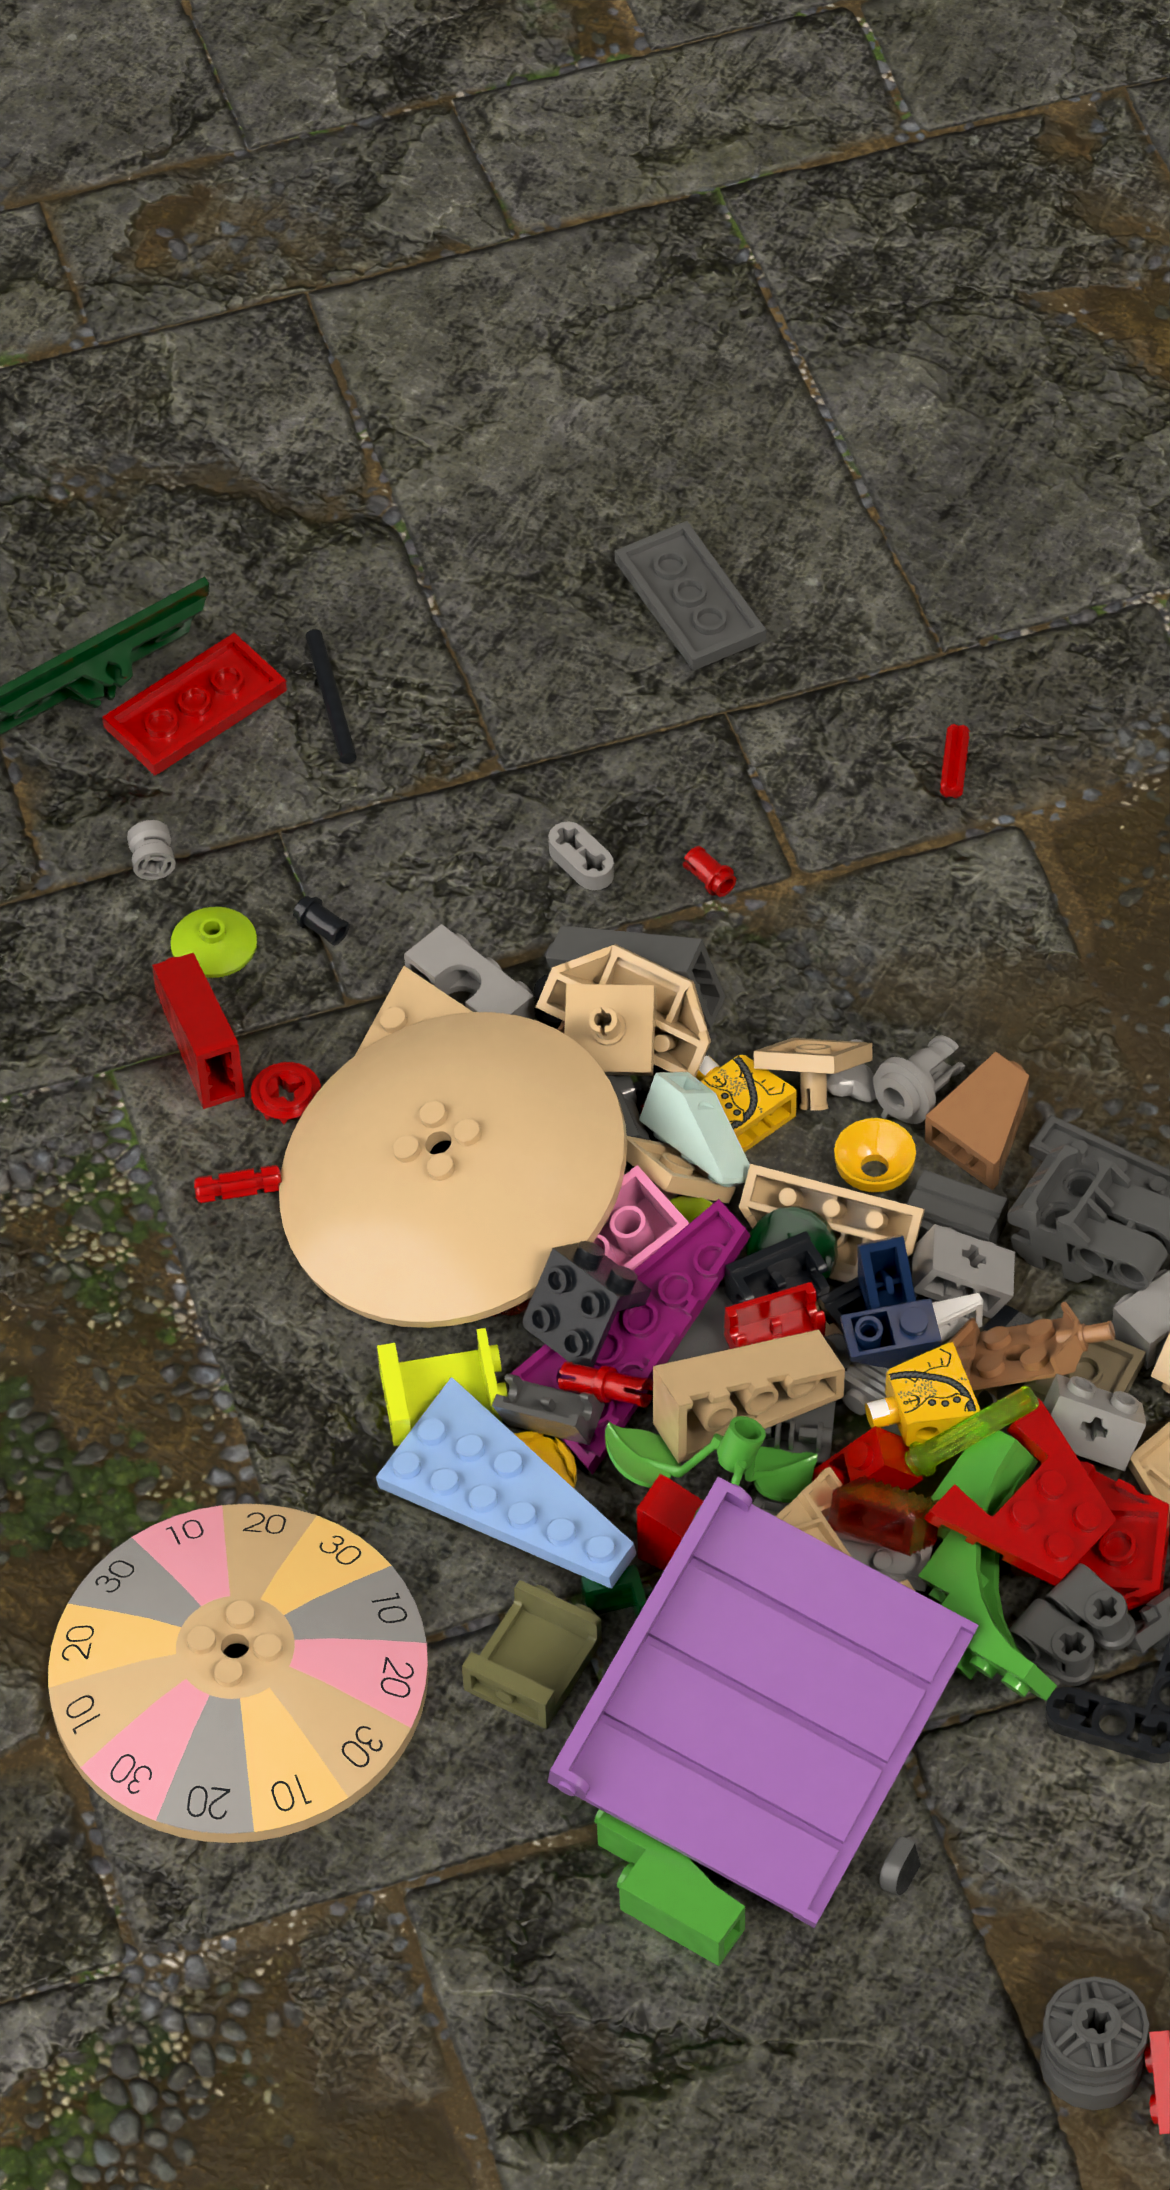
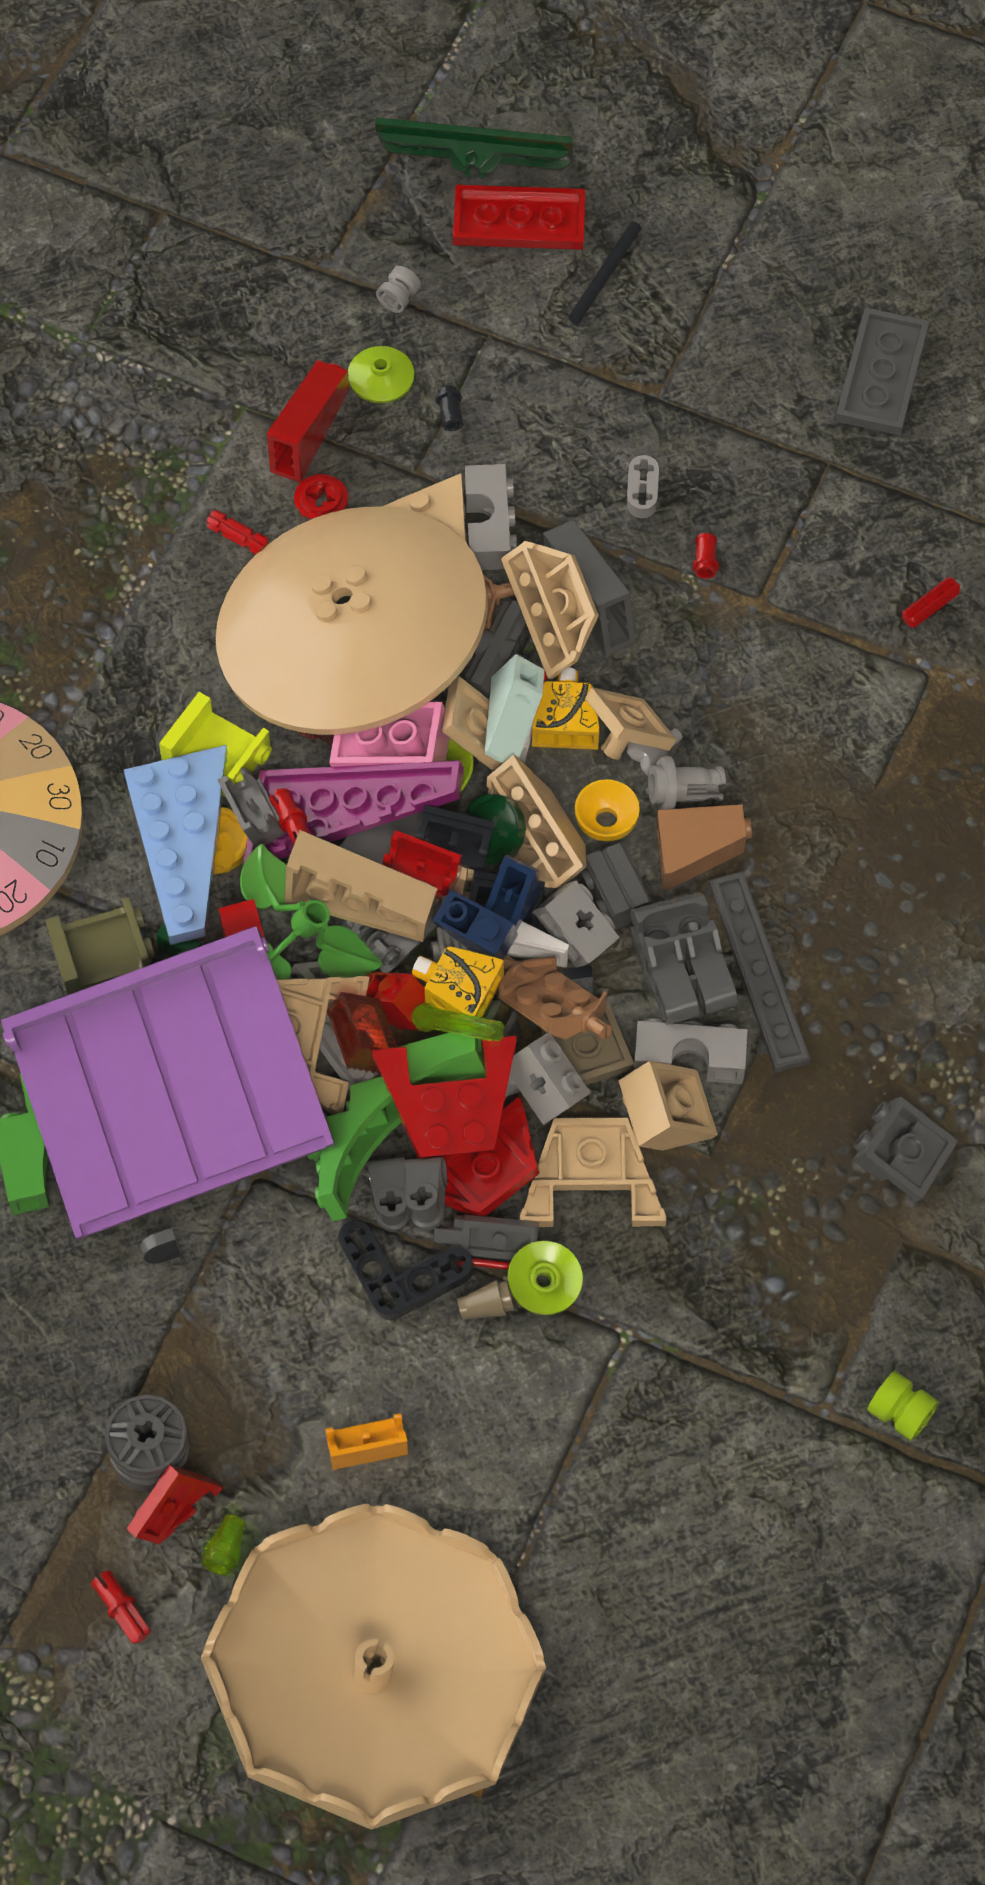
camera: 40 degrees right, 10 degrees up
(580, 1300) = (327, 753): black bracket -> none
(614, 1025) = (524, 606): tan tile -> none

